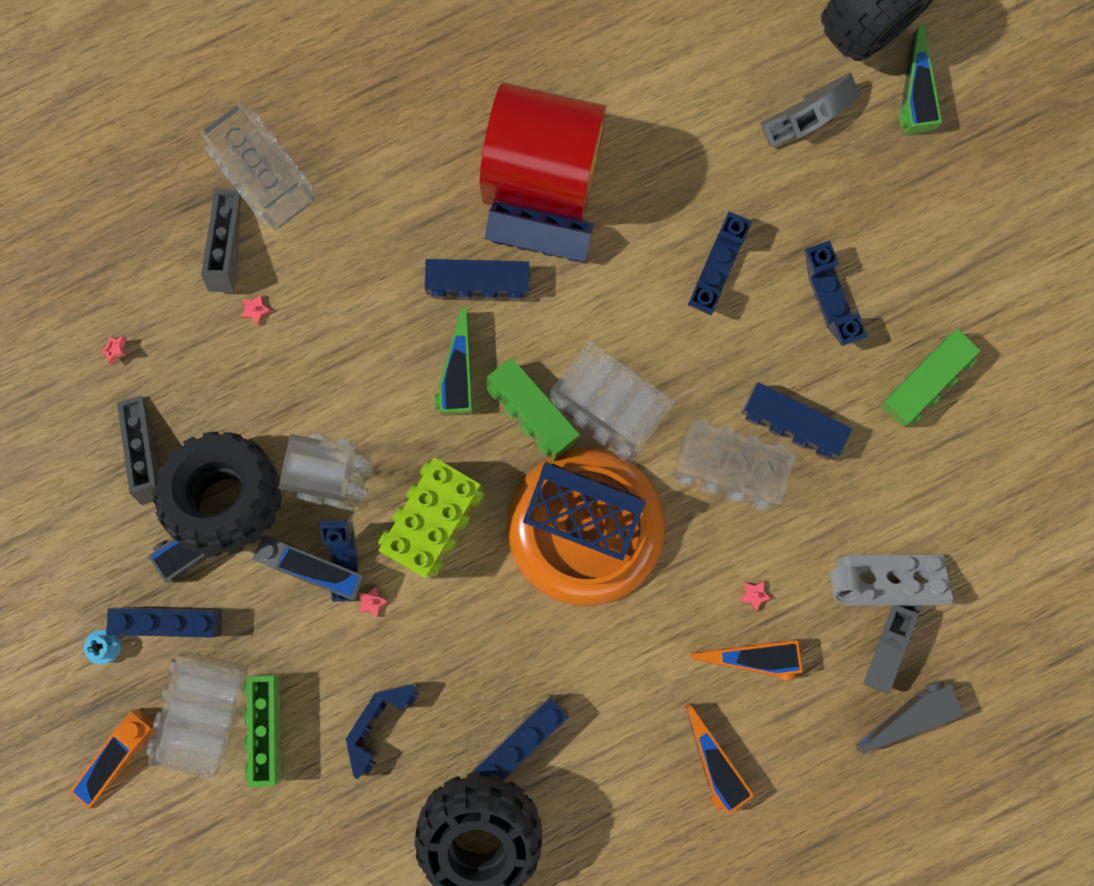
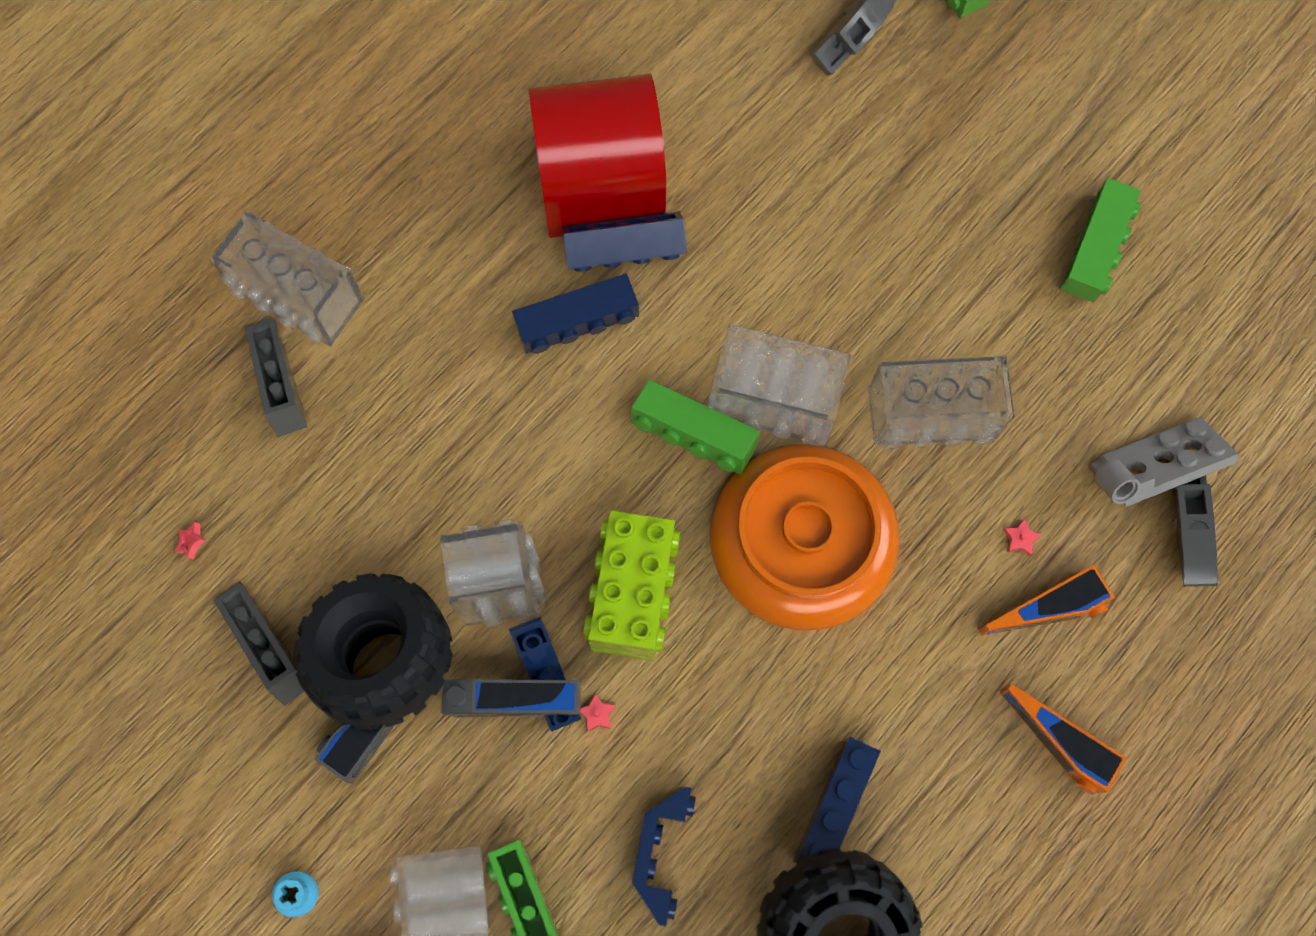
camera: 25 degrees left, 10 degrees down
(164, 622) = (360, 832): dark blue brick -> none
(255, 309) = (338, 439): coral piece -> none
(455, 383) = (598, 434): slope -> none
(591, 488) = (802, 479): dark blue fence -> none
(719, 263) = (828, 202): dark blue slope -> none
(796, 421) = (982, 335): dark blue brick -> none
(830, 296) = (957, 197): dark blue slope -> none
(921, 712) = (1260, 592): dark grey slope -> none

